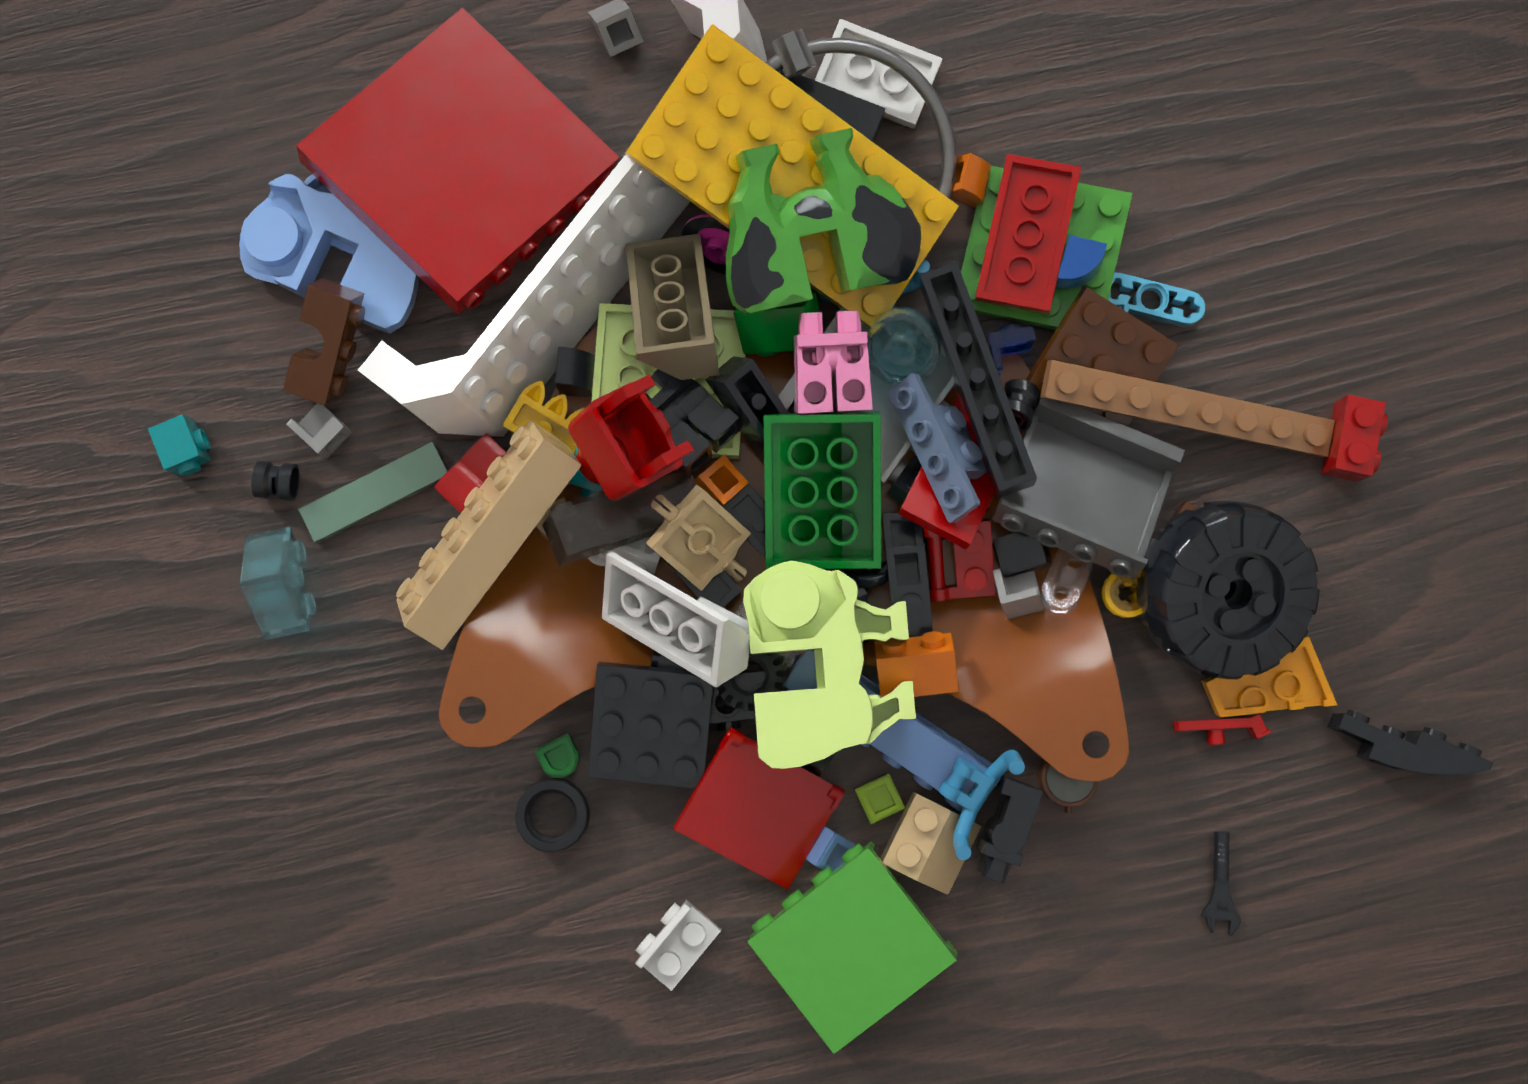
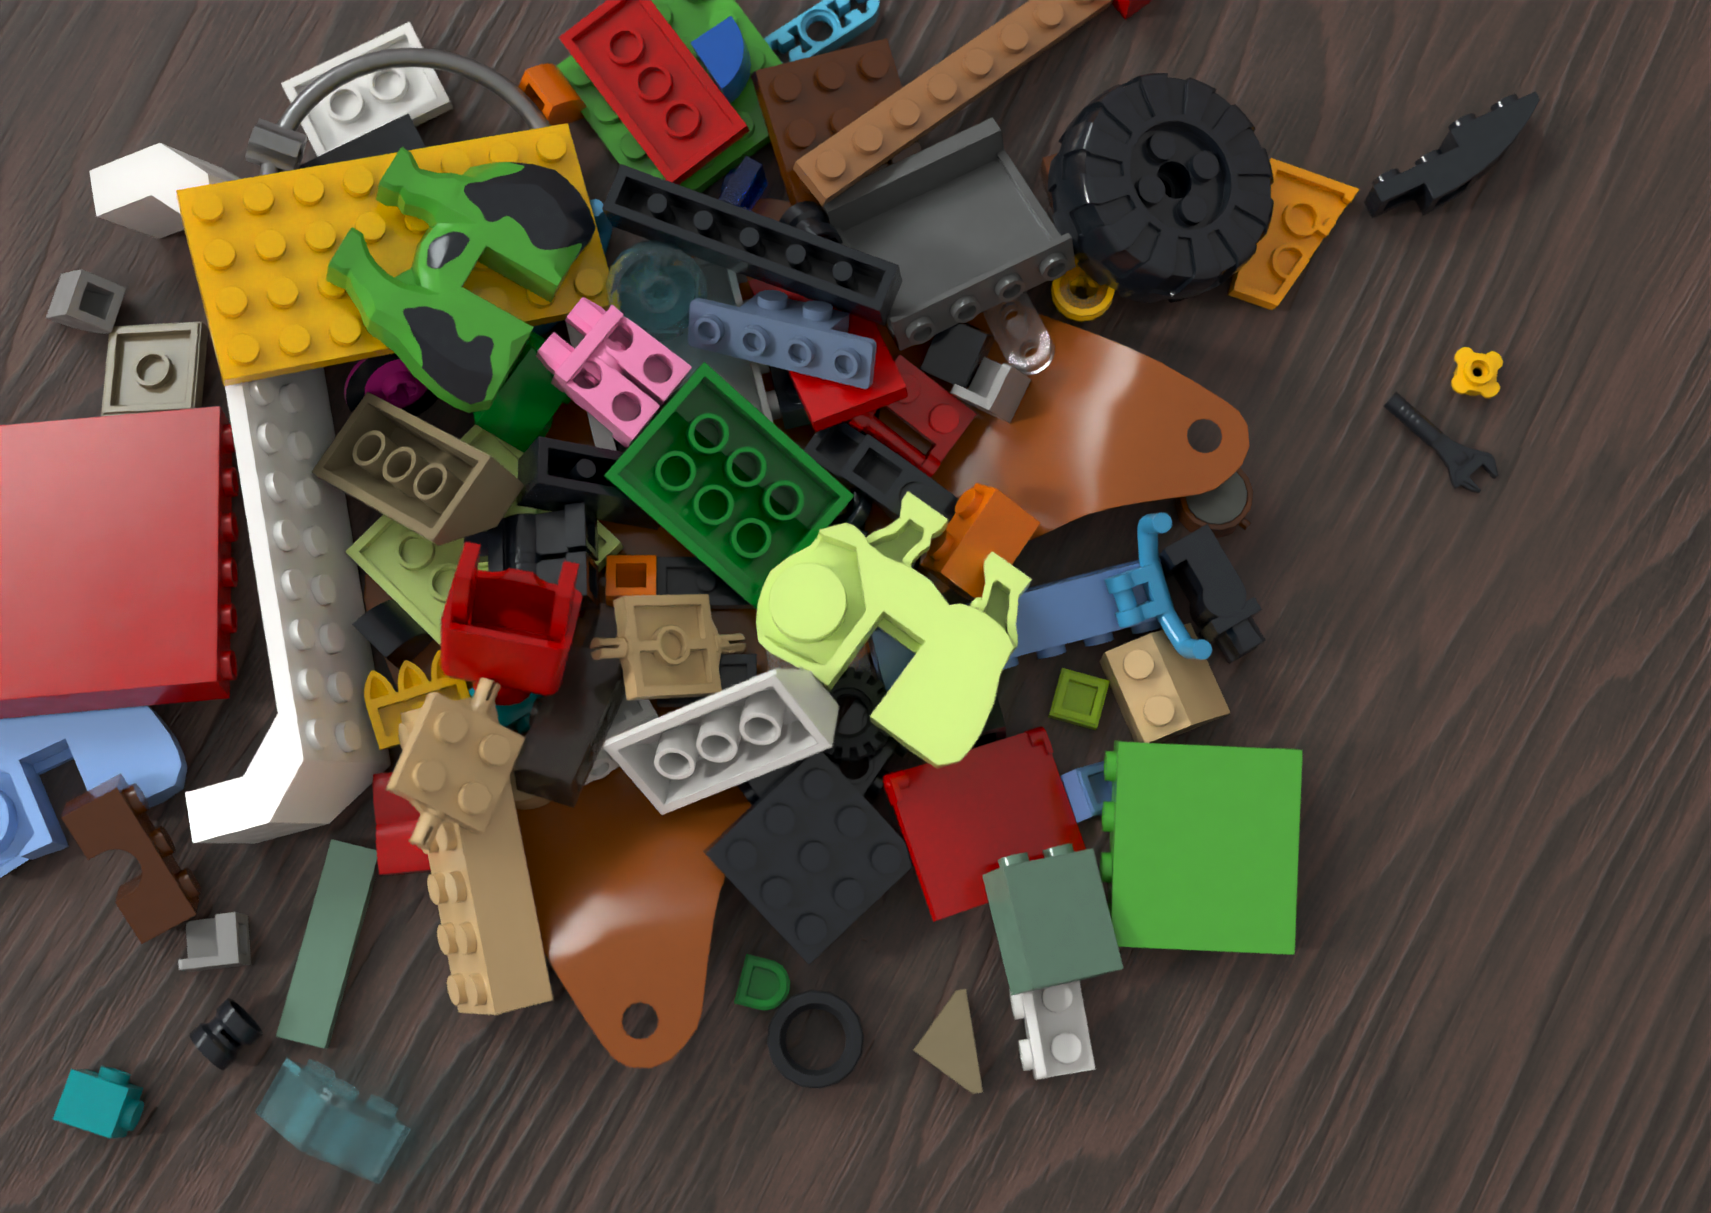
camera: 50 degrees left, 5 degrees down
(521, 481) = (455, 763): none -> tan plate
(610, 100) = (154, 368): none -> plate
(613, 895) = (951, 1044): none -> dark tan slope
(732, 895) = (1051, 919): none -> sand green brick
(1216, 727) = (1312, 282): red piece -> none
(1273, 866) = (1464, 380): none -> yellow plate

